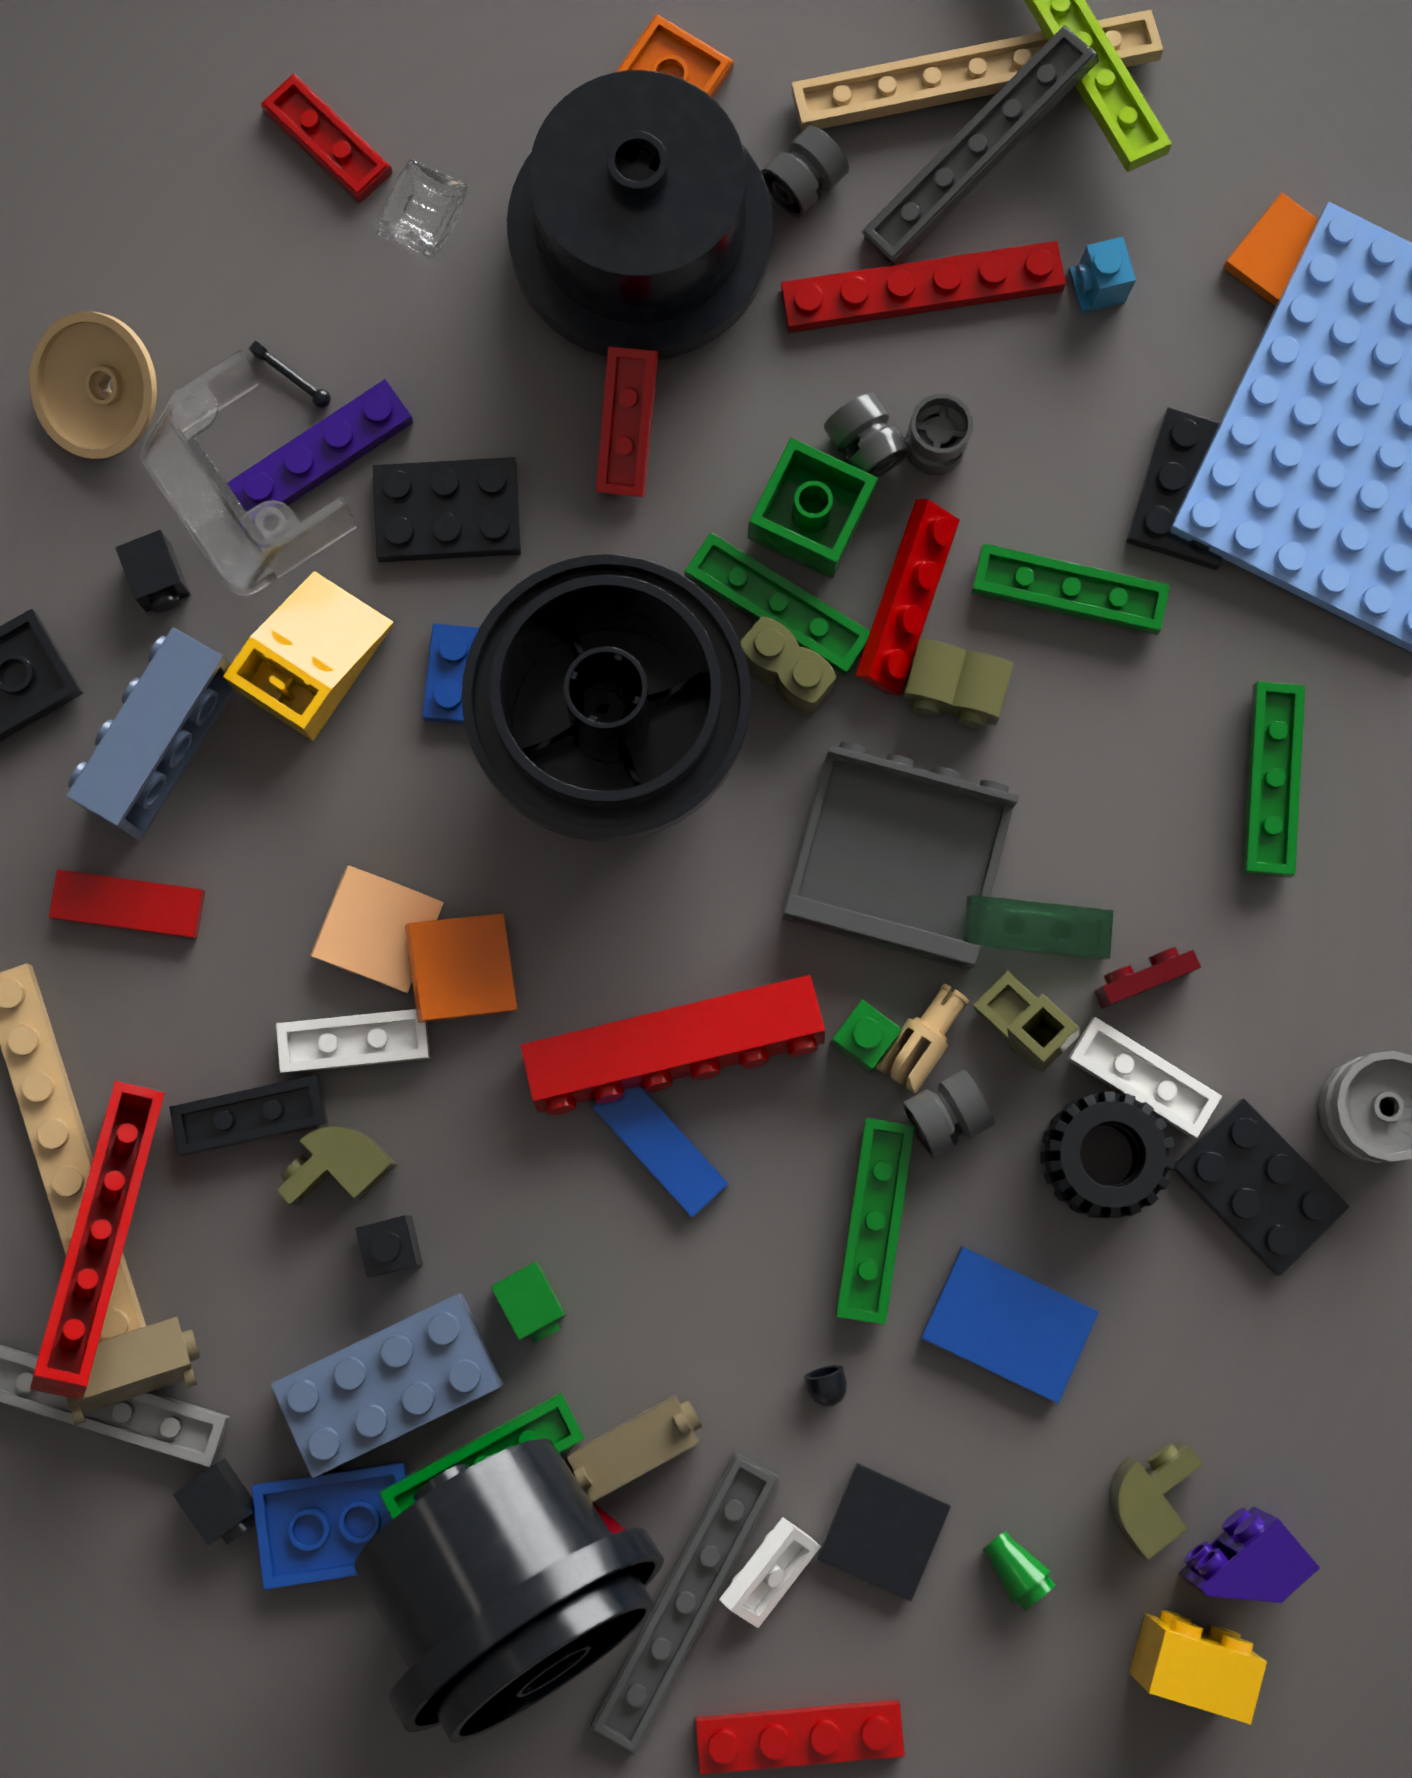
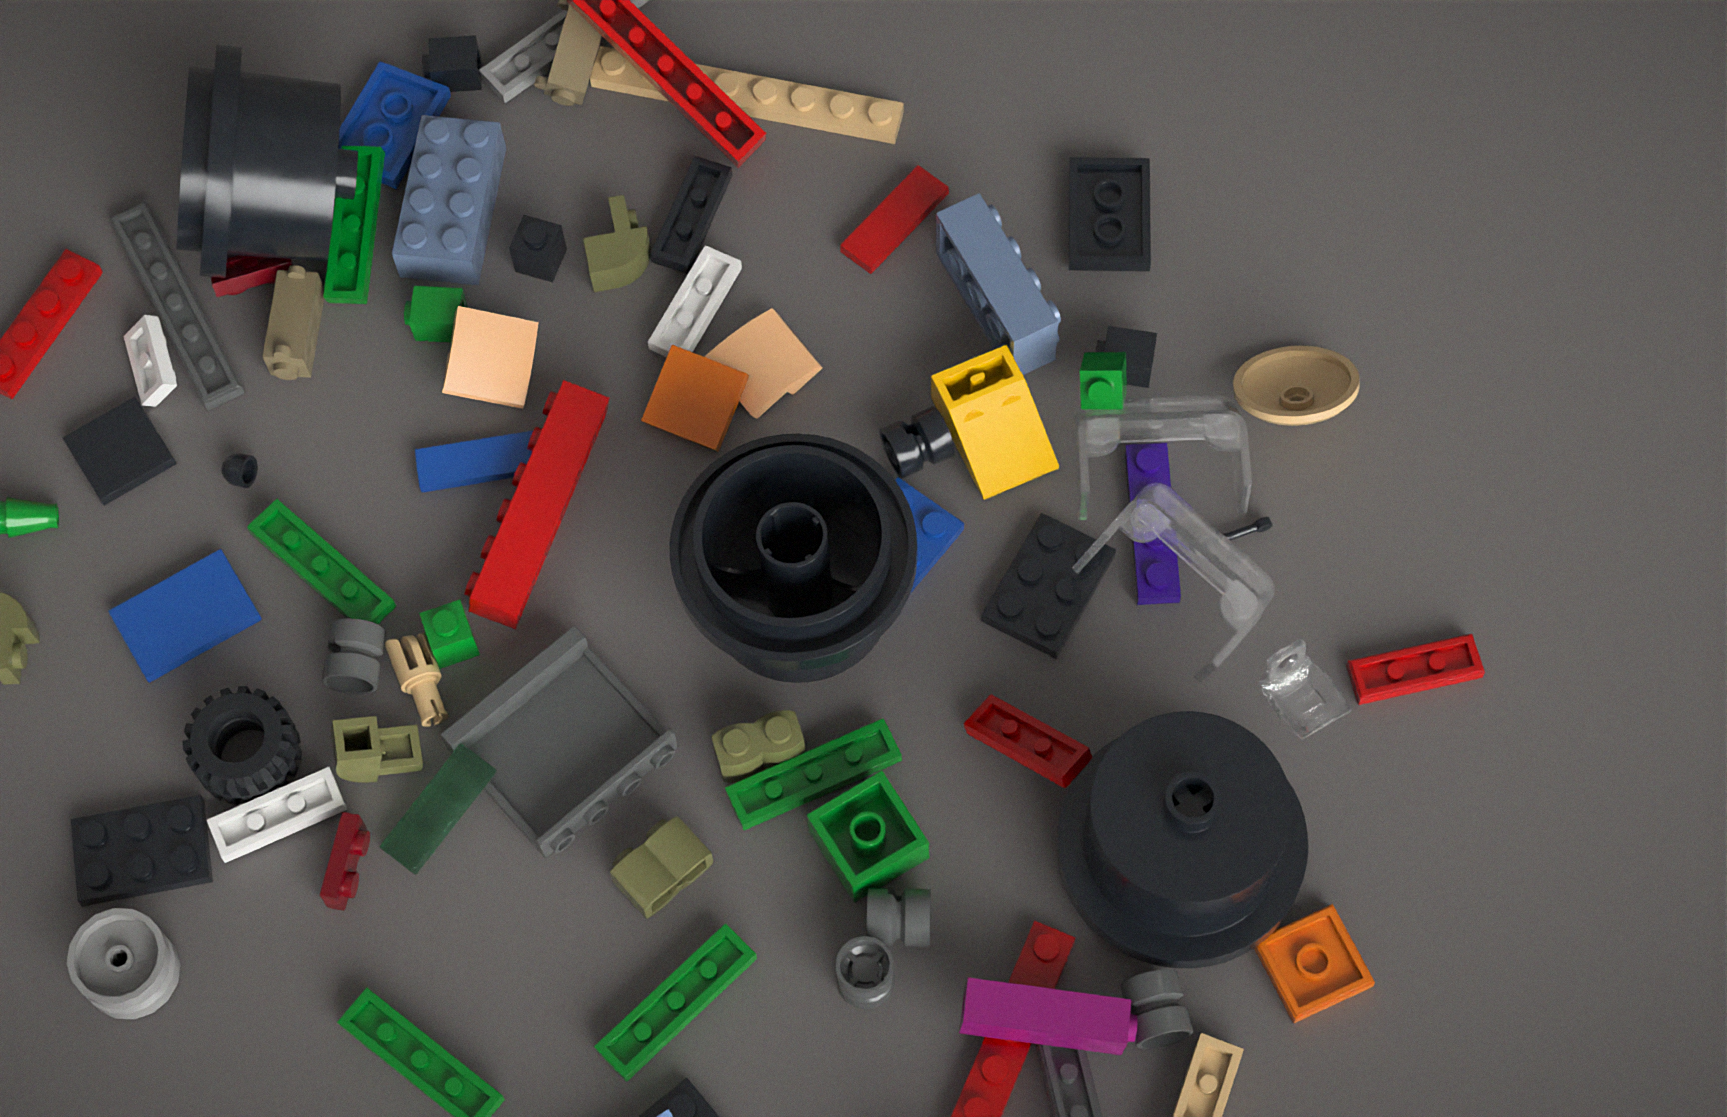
camera: 130 degrees right, 15 degrees down
(204, 562) = (1103, 381): none -> green brick
(336, 424) = (1243, 583): none -> clear windscreen
(364, 702) = (917, 442): none -> black wheel
(546, 1206) = (490, 357): none -> light nougat slope
(881, 248) = (1047, 1016): none -> magenta brick
(907, 597) = (754, 873): red plate -> none

